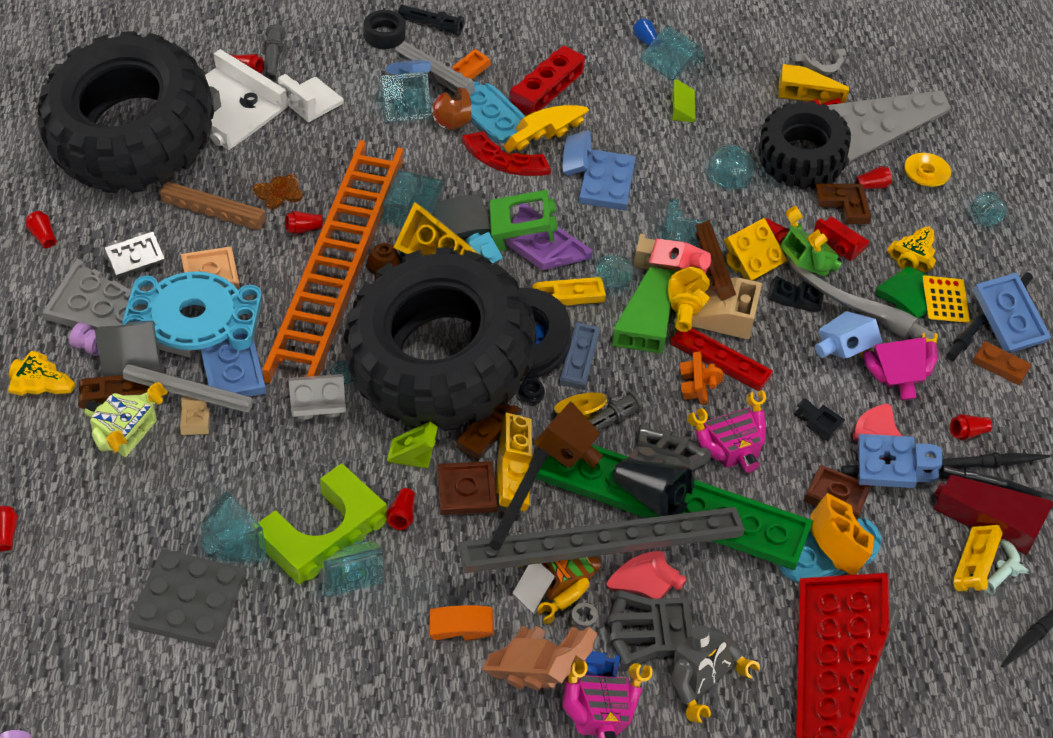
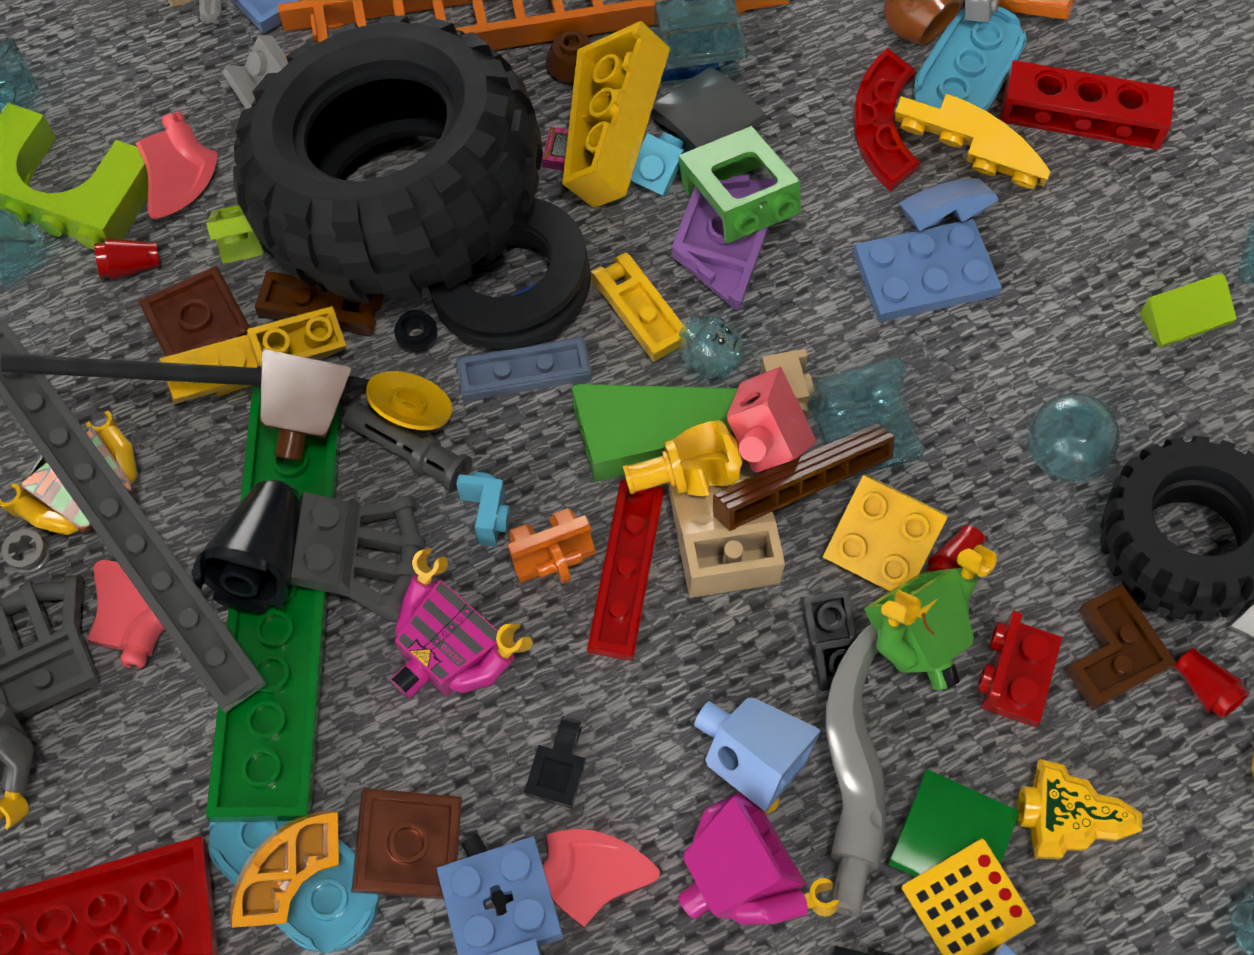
camera: 70 degrees right, 15 degrees up
(352, 457) = (175, 166): none -> coral arm
(663, 394) = (492, 513): none -> medium azure bracket

